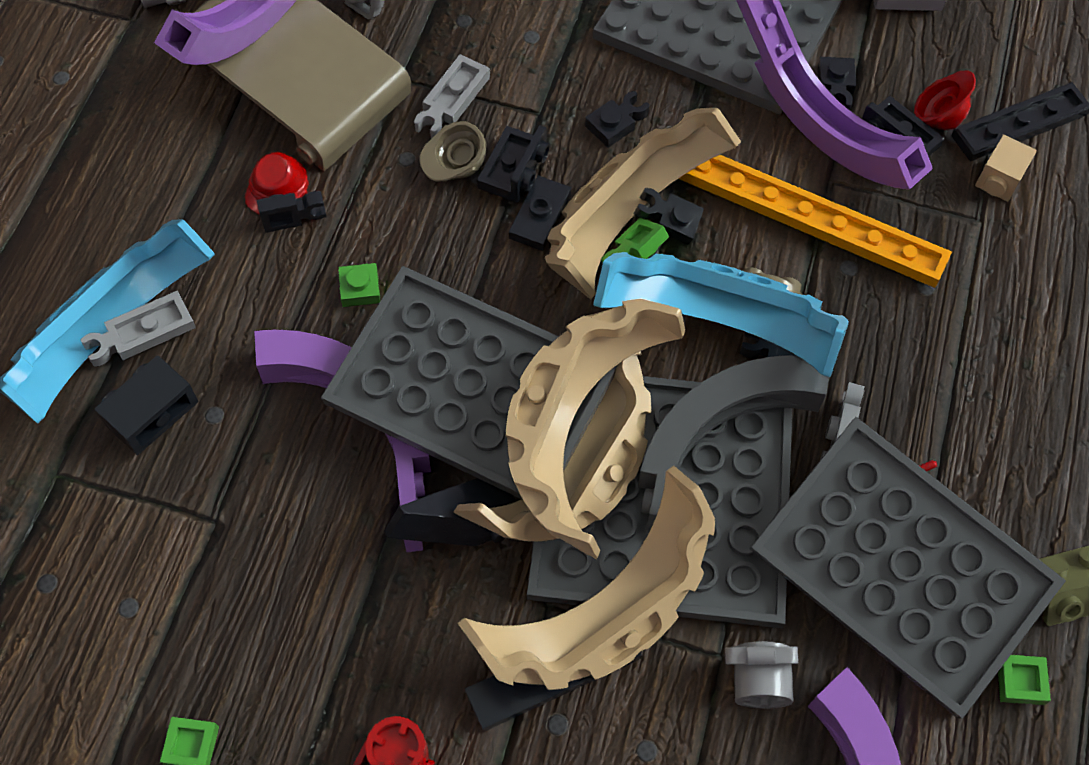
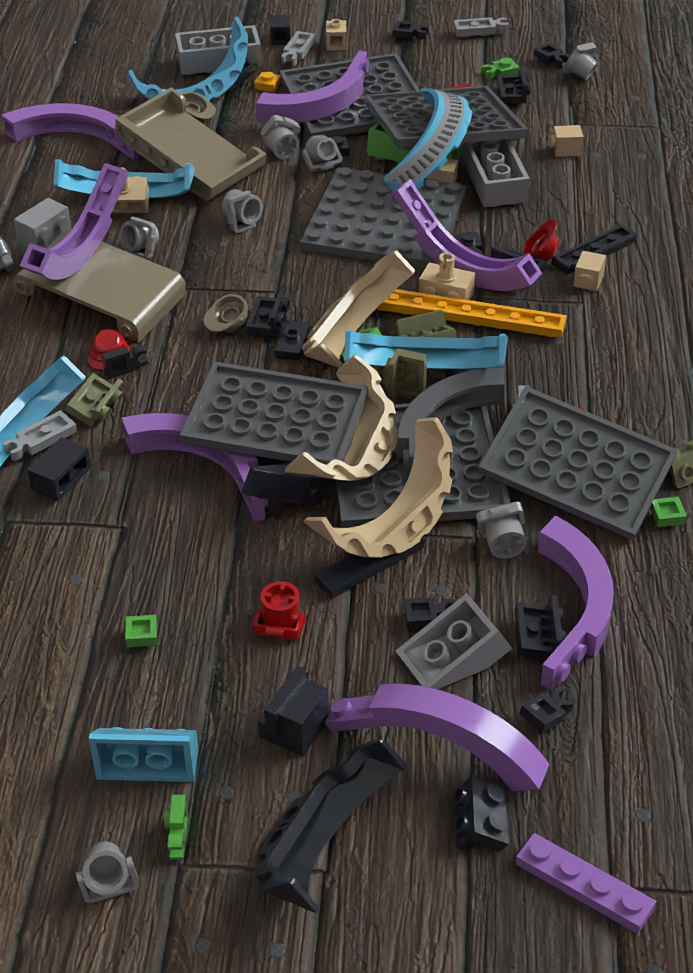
camera: 10 degrees left, 20 degrees down
(229, 275) = (93, 399): none -> olive bracket
(359, 284) = (181, 393): bright green plate -> none
(452, 94) = (215, 286): light grey plate -> none
(553, 392) = (338, 389): tan windscreen -> none
(616, 121) = (328, 287): black plate -> none
(675, 214) = (384, 323): black plate -> none
(698, 338) = (406, 374): none -> olive bracket
(735, 239) = (425, 325): none -> olive bracket
(787, 152) = (447, 280): none -> tan brick

